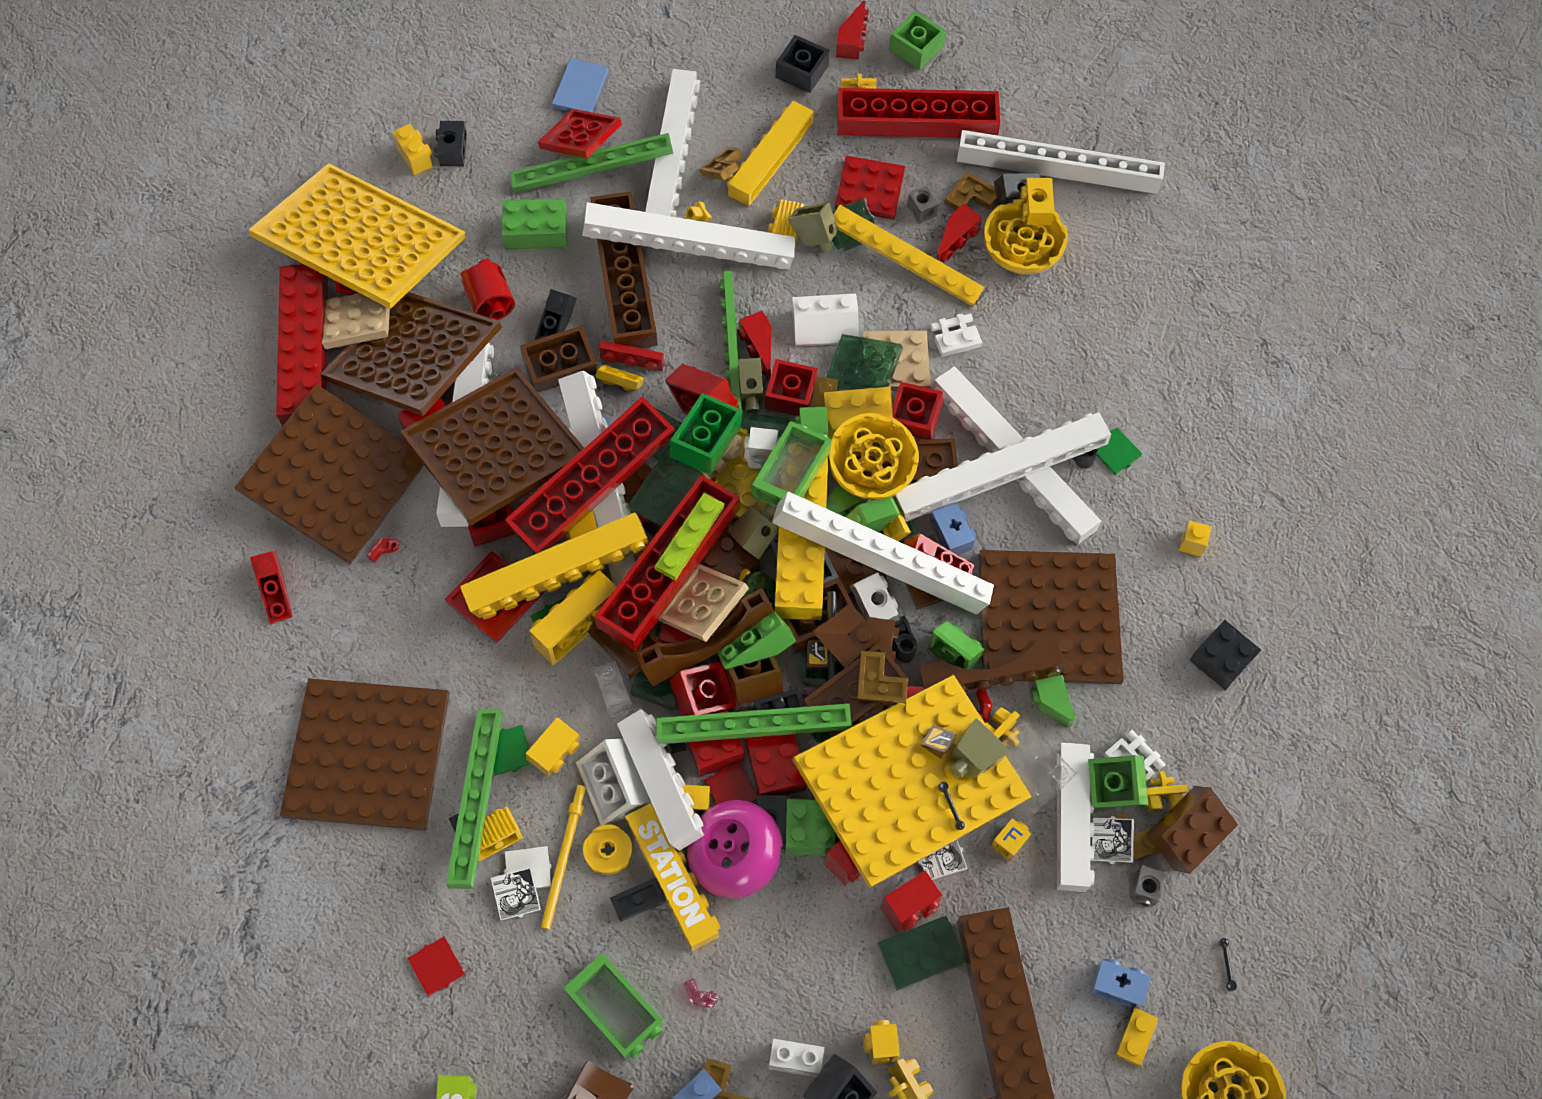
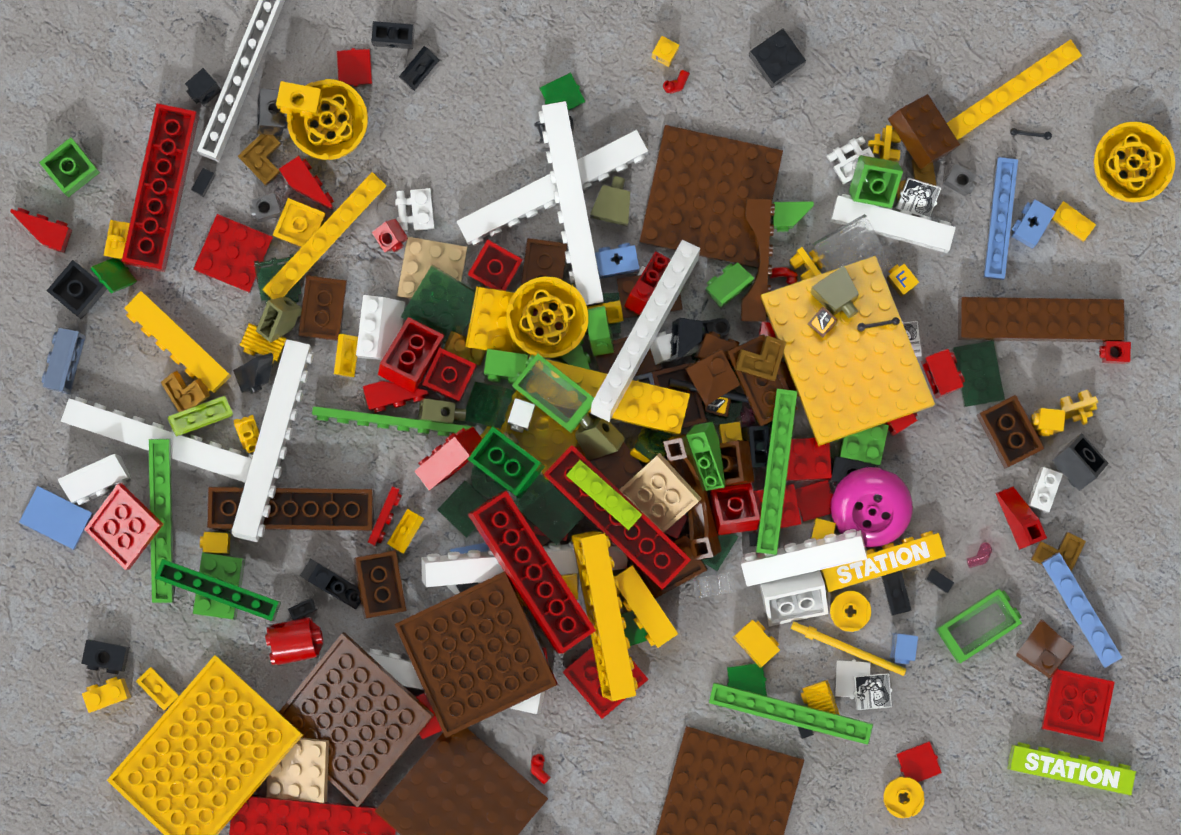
camera: 80 degrees left, 20 degrees up
(398, 965) = (892, 799): none -> yellow plate
(425, 190) = (157, 688): none -> yellow plate
(523, 301) = (302, 609): none -> black piece
(526, 208) = (218, 590): none -> green brick
(571, 915) = (903, 648): none -> medium blue brick
(576, 213) = (215, 542): none -> yellow brick
(622, 100) = (94, 479): none -> white slope
(661, 949) = (939, 580): none -> black piece
(701, 179) = (200, 416): none -> lime plate
(731, 67) = (63, 360): none -> sand blue slope
(754, 215) = (254, 373): none -> black slope
(755, 1033) = (1021, 519): none -> red slope
(782, 295) = (346, 355): none -> yellow plate
(791, 676) = (730, 432): none -> yellow brick
(804, 343) = (410, 355): none -> red brick
(823, 89) = (113, 275): none -> green piece
(834, 268) = (322, 308): none -> reddish brown plate
(859, 999) = (1010, 431): none -> reddish brown brick
(886, 604) = (685, 336): none -> black slope
(915, 231) = (298, 223): none -> yellow plate
(923, 312) = (383, 232): none -> red brick
(933, 150) = (203, 182): none -> black piece
(1014, 515) = (612, 203): none -> olive torso
(1026, 124) = (202, 87): none -> black brick
(1085, 259) = (354, 67): none -> red piece
(1102, 311) = (419, 68): none -> black plate
(1115, 944) = (1000, 218): none -> medium blue plate
(1128, 280) = (392, 35): none -> black brick
(1162, 560) = (678, 84): none -> red arm
(1274, 933) = (1014, 89): none -> yellow plate

